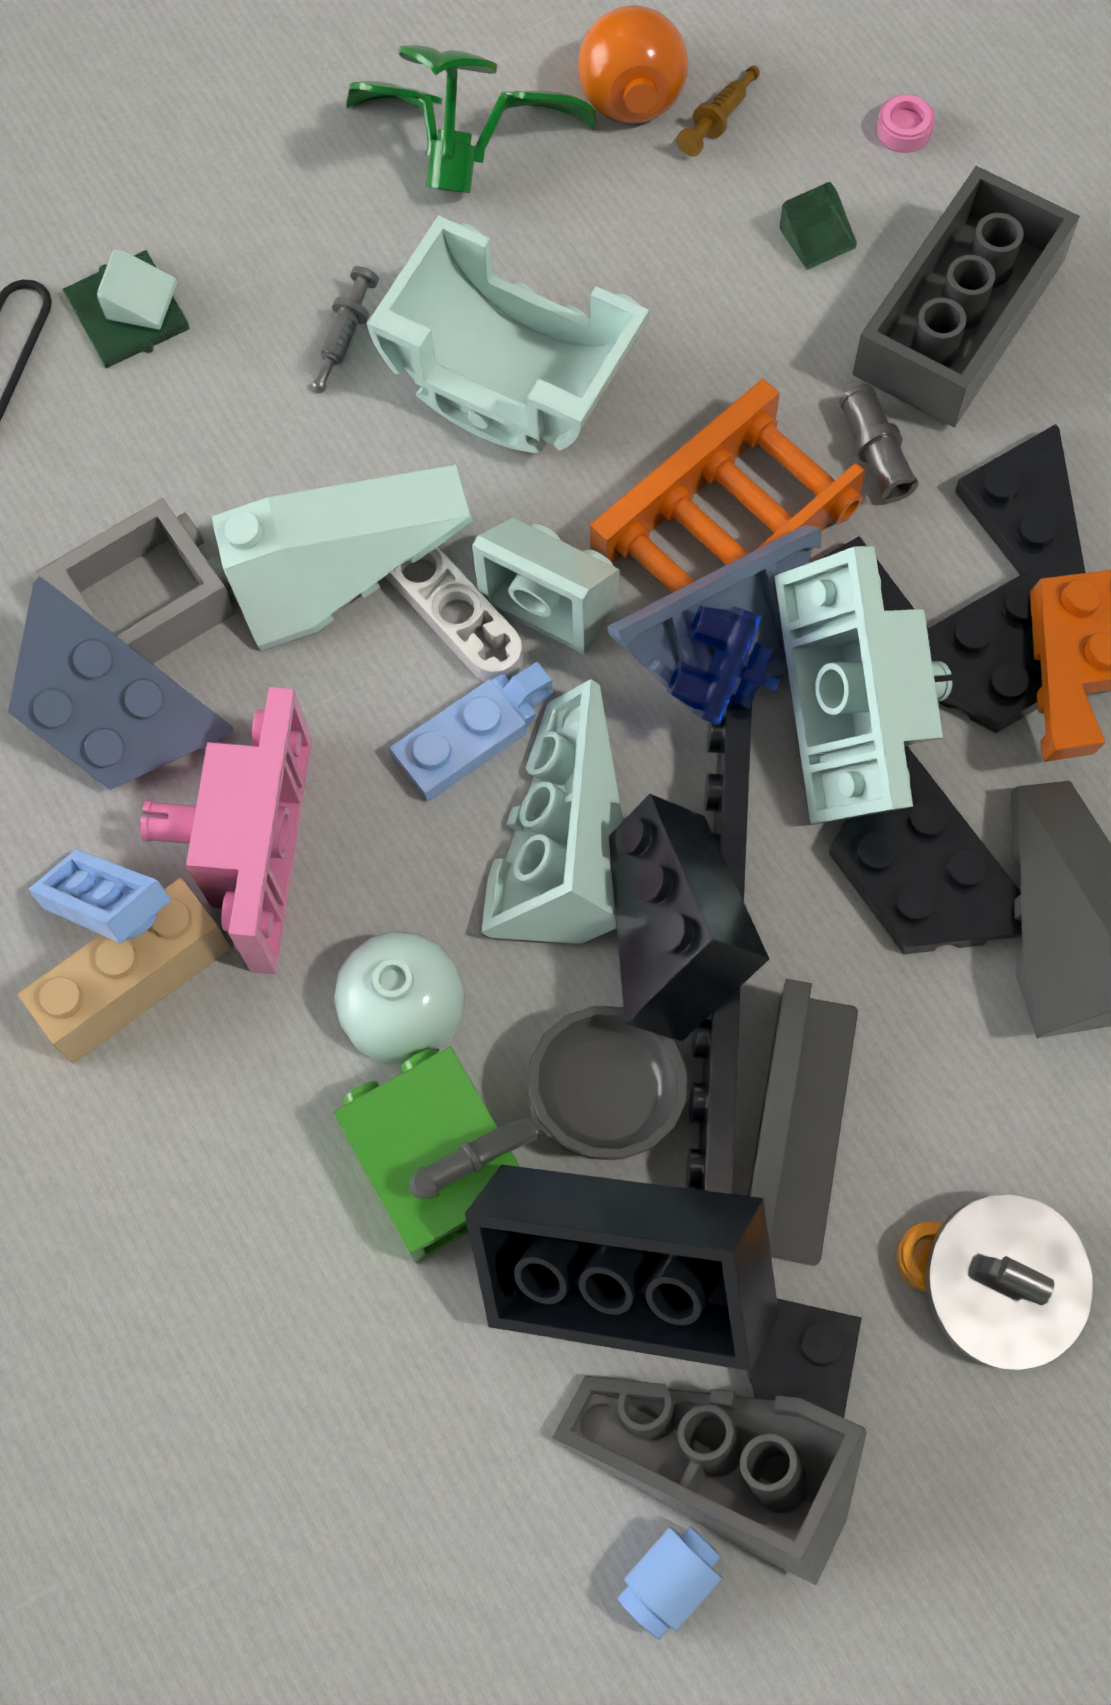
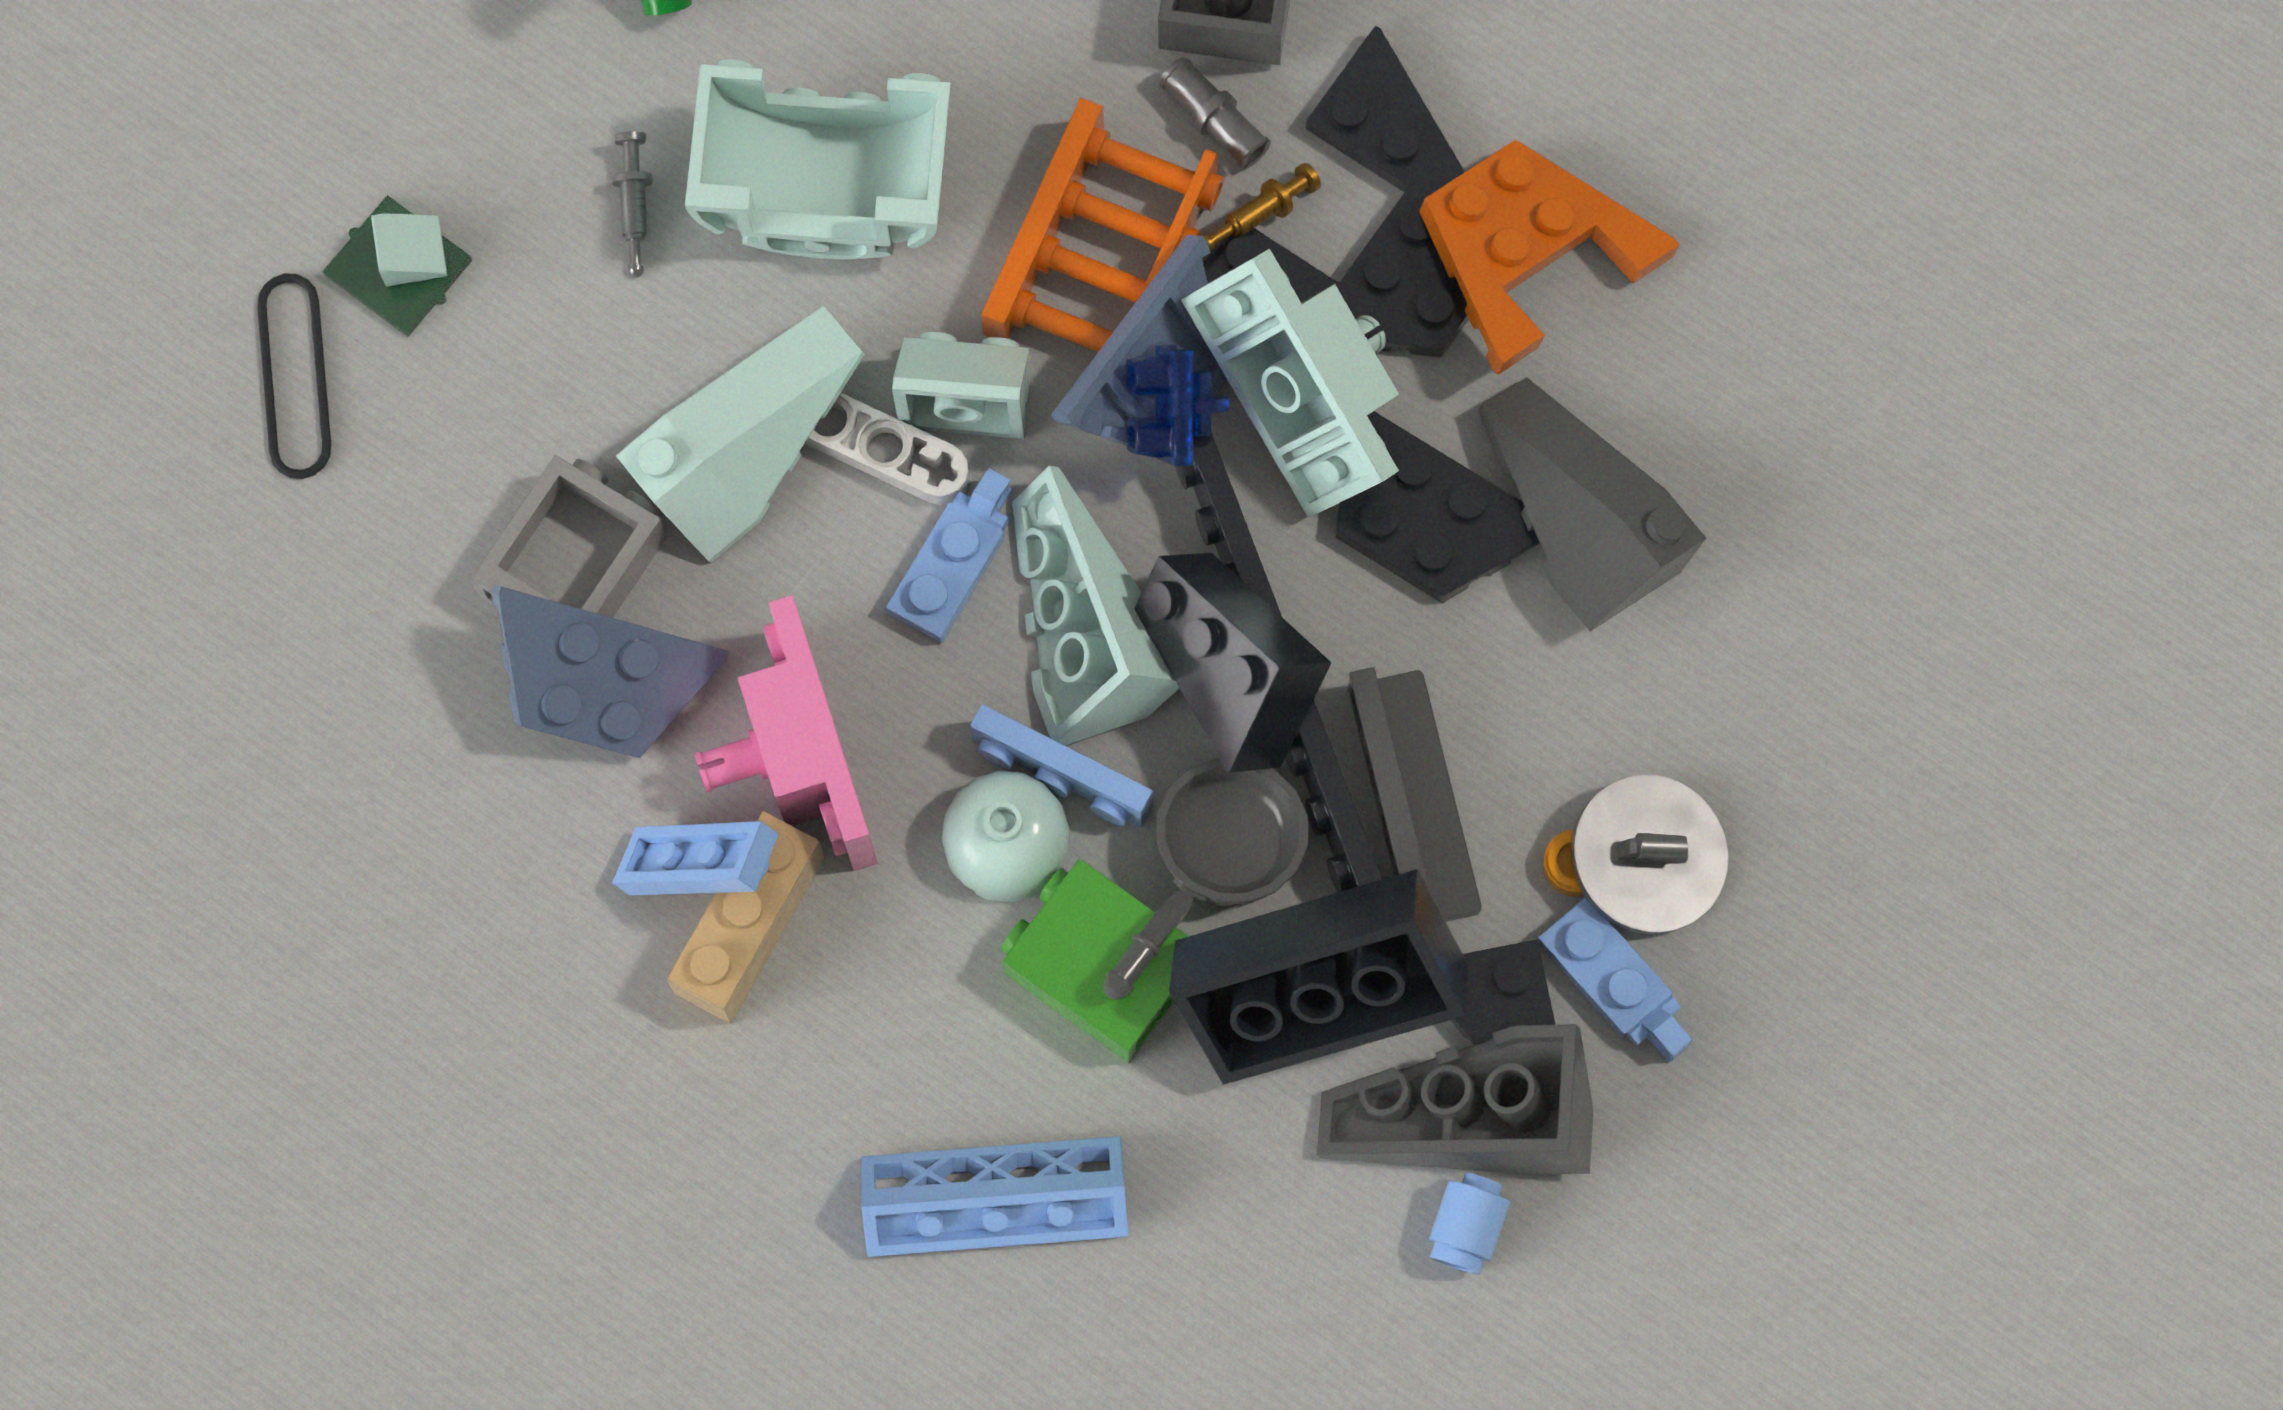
camera: 25 degrees left, 5 degrees up
(216, 1346) = (993, 1205): none -> light blue fence
(477, 957) = (1060, 768): none -> light blue plate
(899, 534) = (1273, 200): none -> pearl gold piece
(924, 1394) = (1615, 980): none -> light blue hinge

